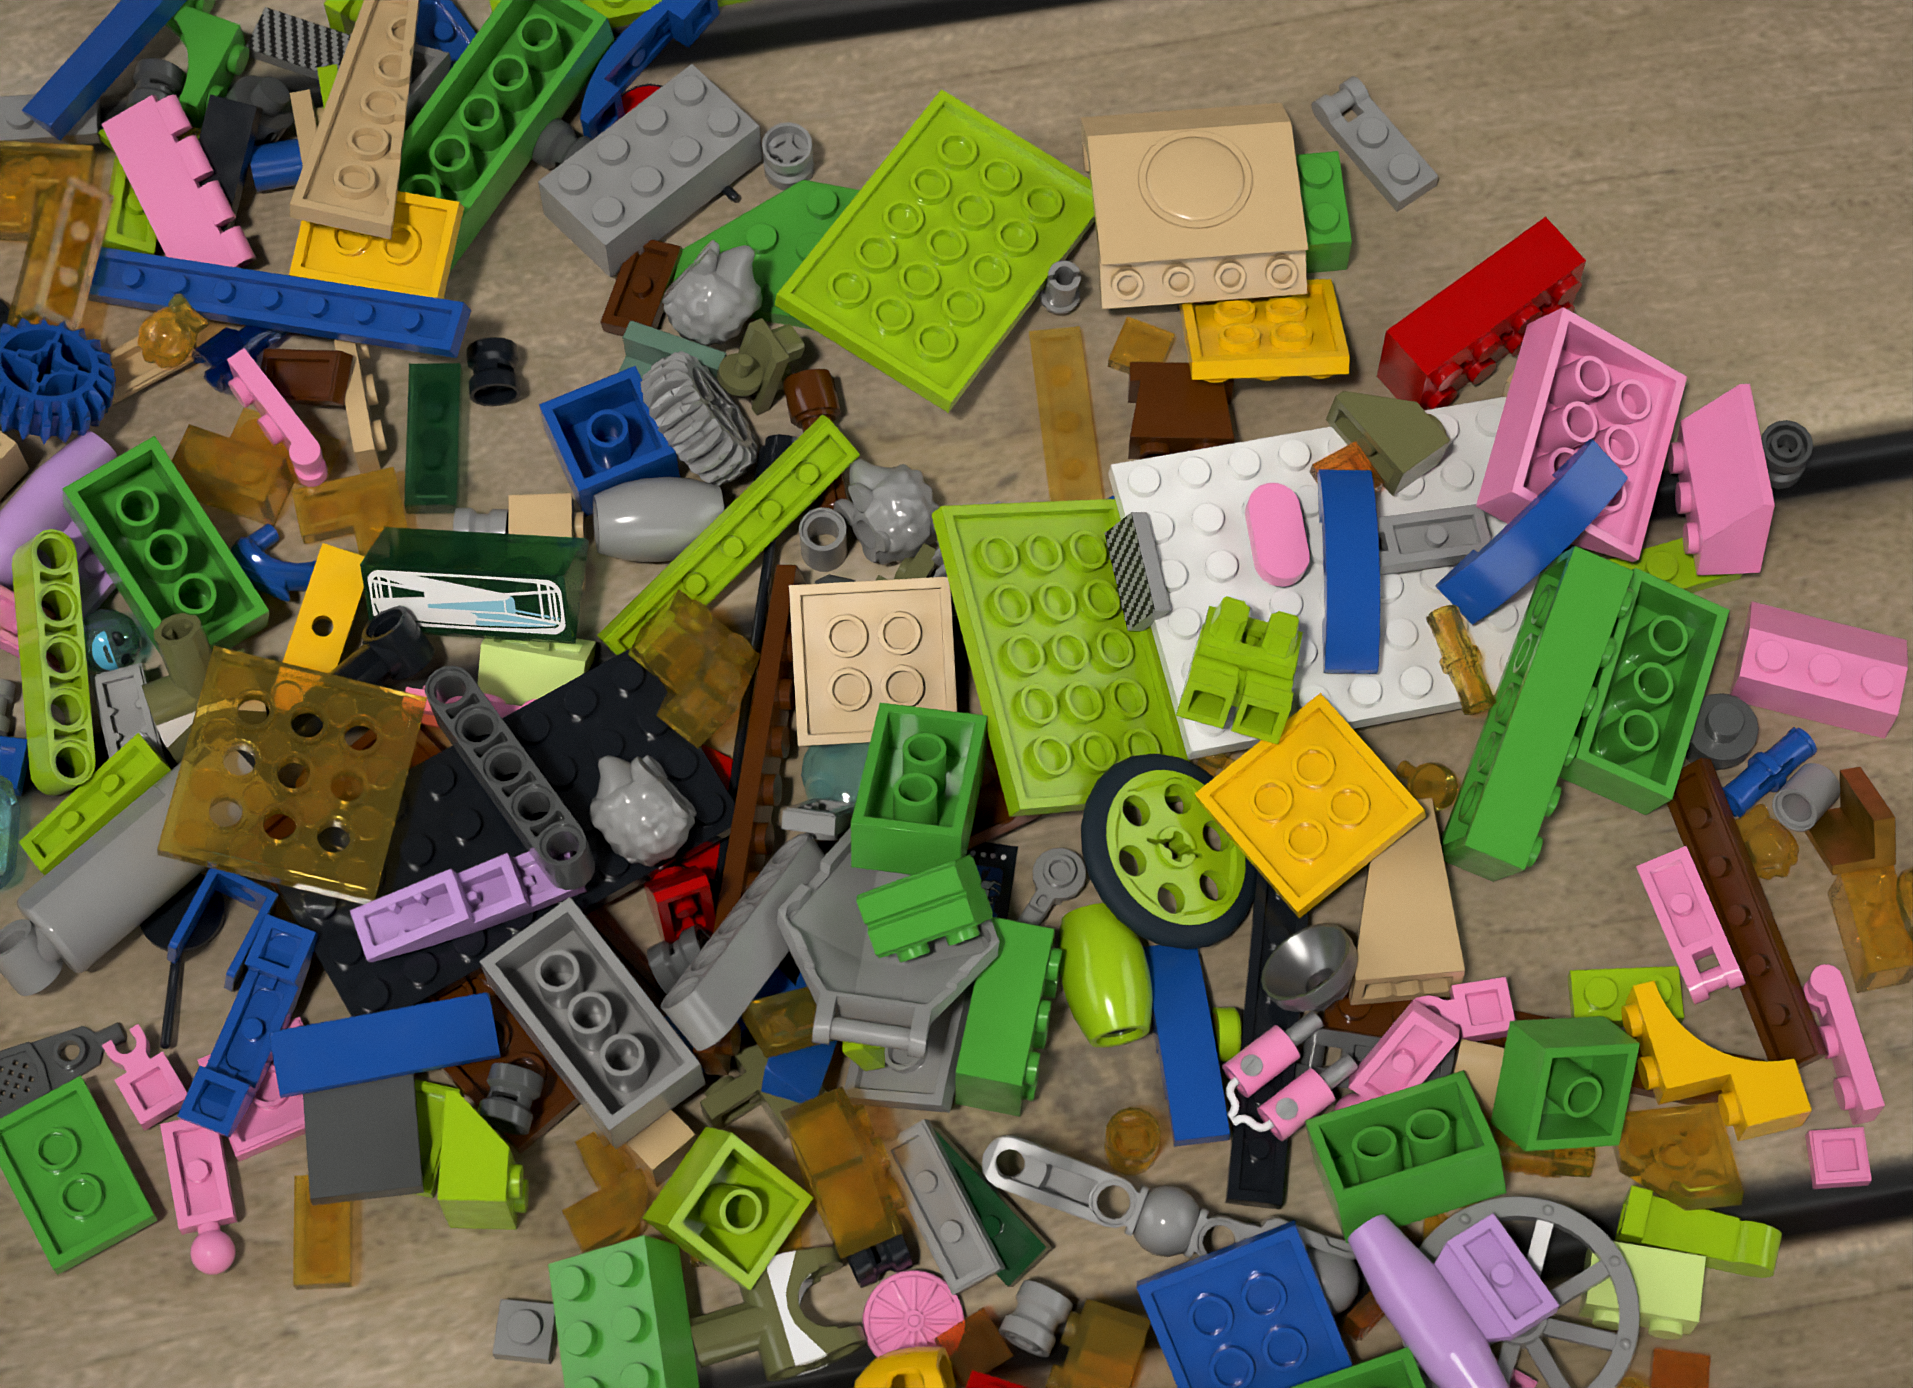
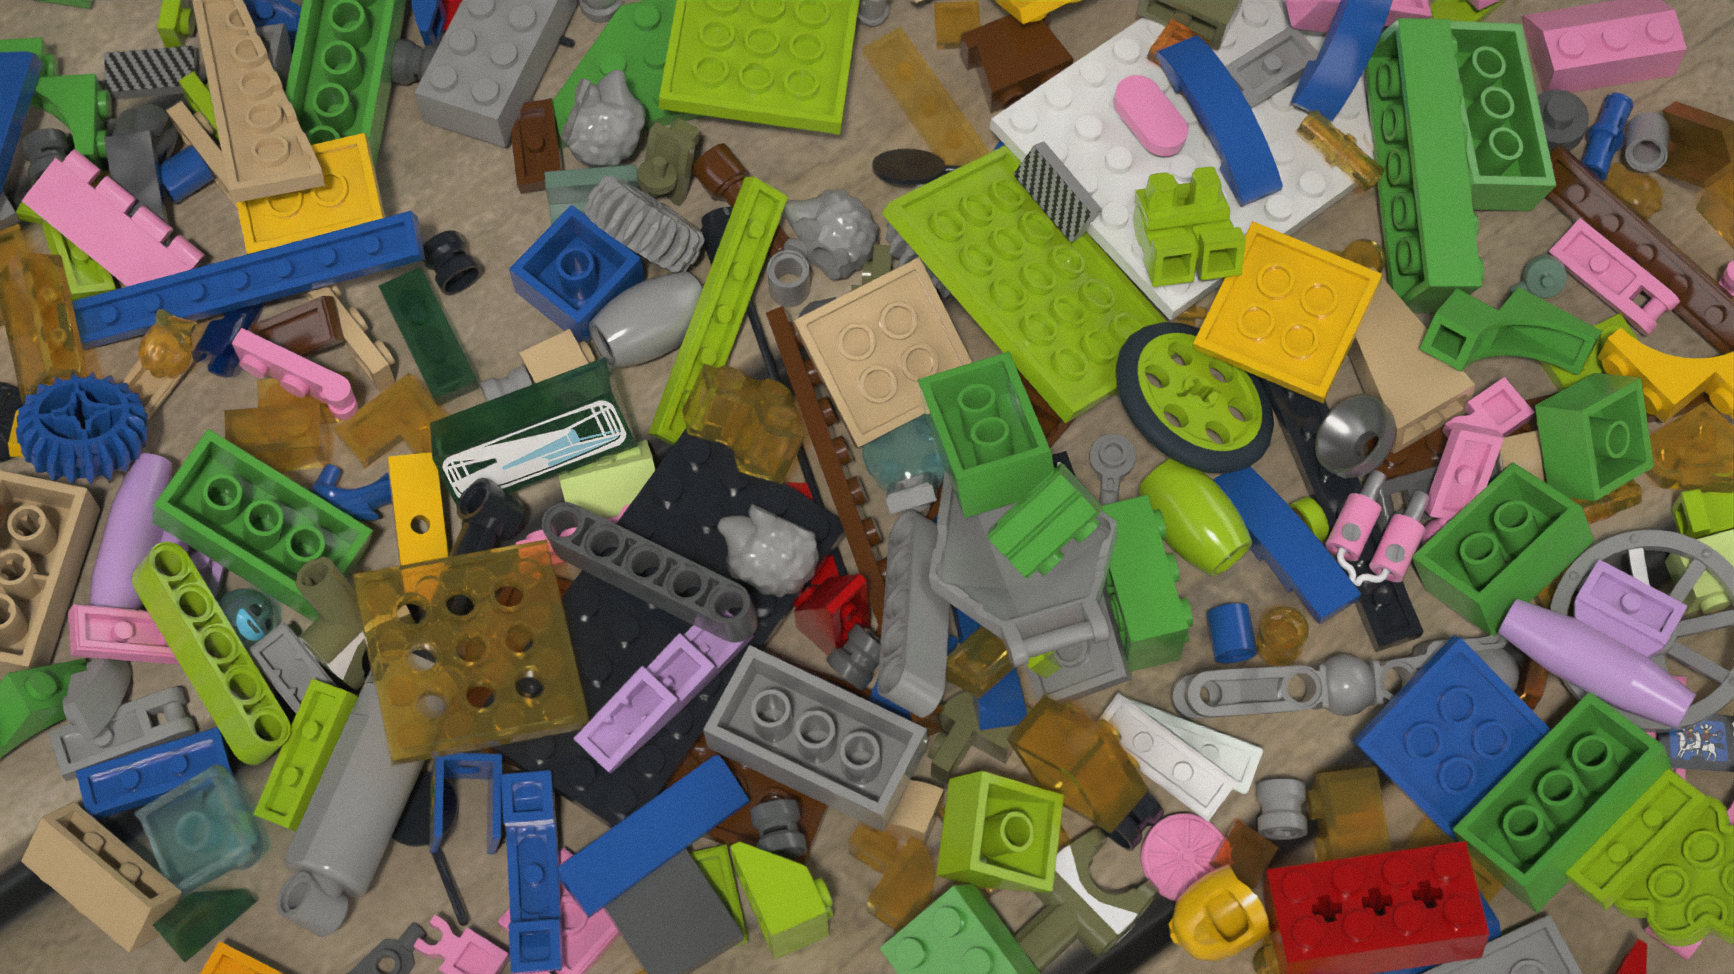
camera: 25 degrees left, 0 degrees up
(1008, 477) = (910, 166): none -> black piece
(1082, 1113) = (1231, 633): none -> blue beam
(1556, 932) = (1523, 327): none -> bright green arch
(1614, 890) = (1543, 276): none -> sand green piece

